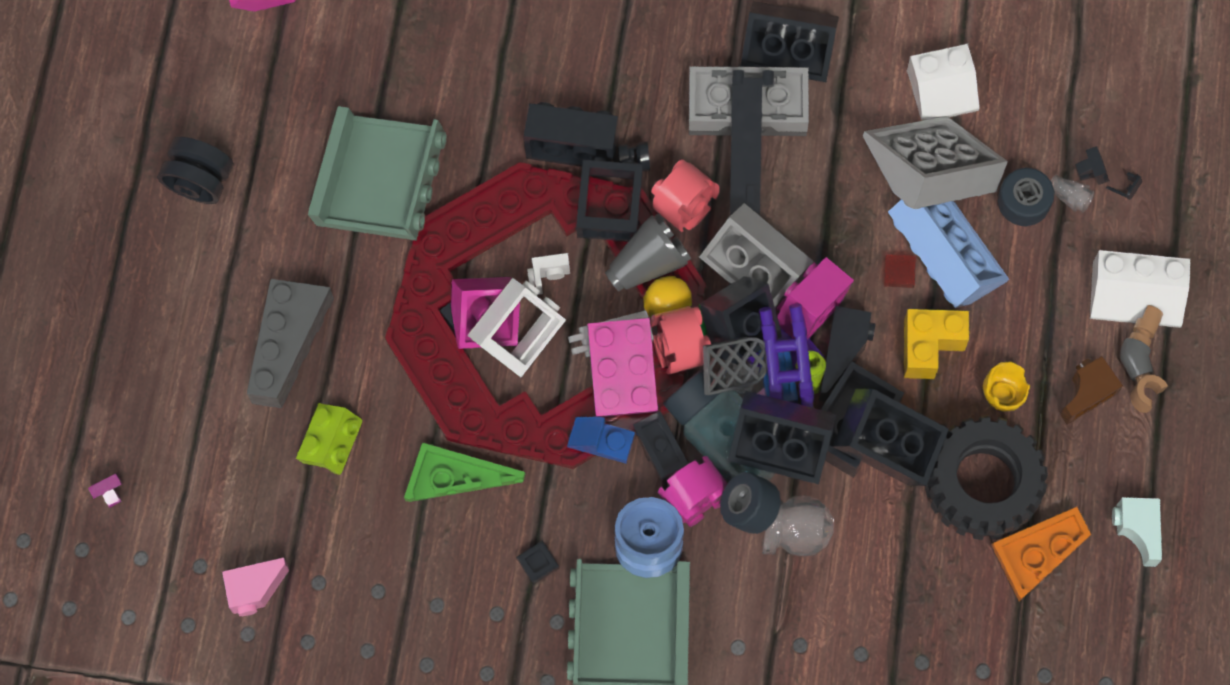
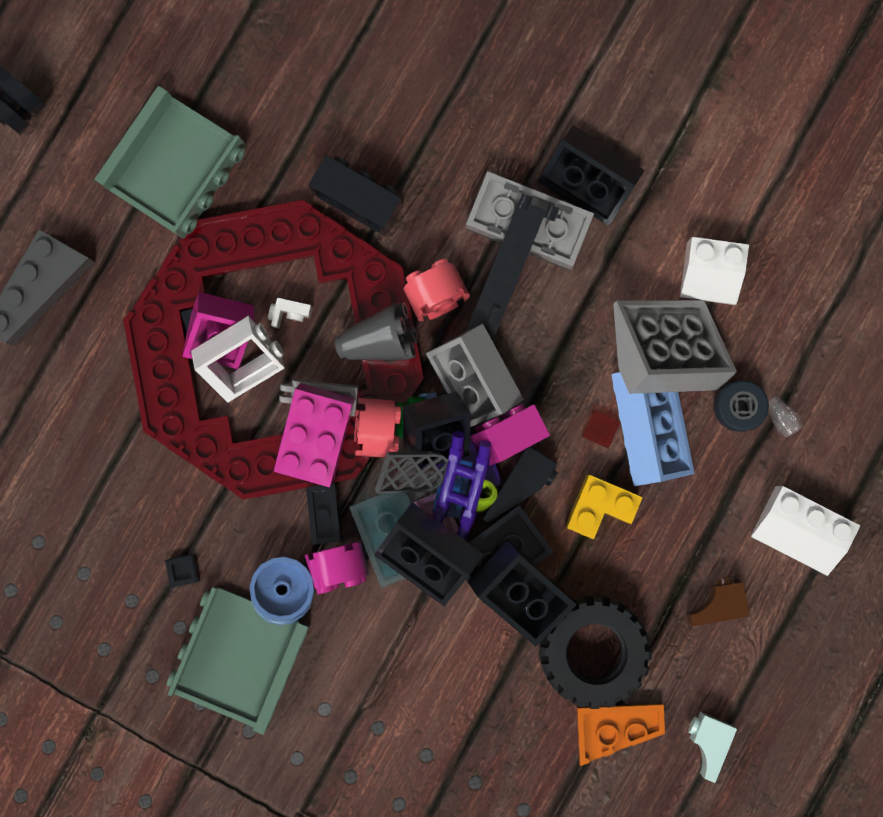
camera: 20 degrees right, 15 degrees up
(329, 438) = (43, 392): lime bracket -> none
(446, 473) = (133, 462): bright green wing -> none
(601, 439) = (275, 487): blue slope -> none
(606, 227) = (354, 296): black window -> none
(626, 152) = (400, 233): black wheel -> none
(667, 295) = (383, 380): yellow hair -> none
(690, 398) = (361, 482): black wheel -> none
(750, 503) = (375, 604): black wheel -> none
(800, 528) = (414, 631): clear tile -> none
(1006, 386) = (647, 575): yellow hair -> none
(1092, 167) = (814, 401): black tile -> none
(1136, 359) = (774, 591): medium nougat piece -> none
(1137, 179) = (848, 427): black piece -> none

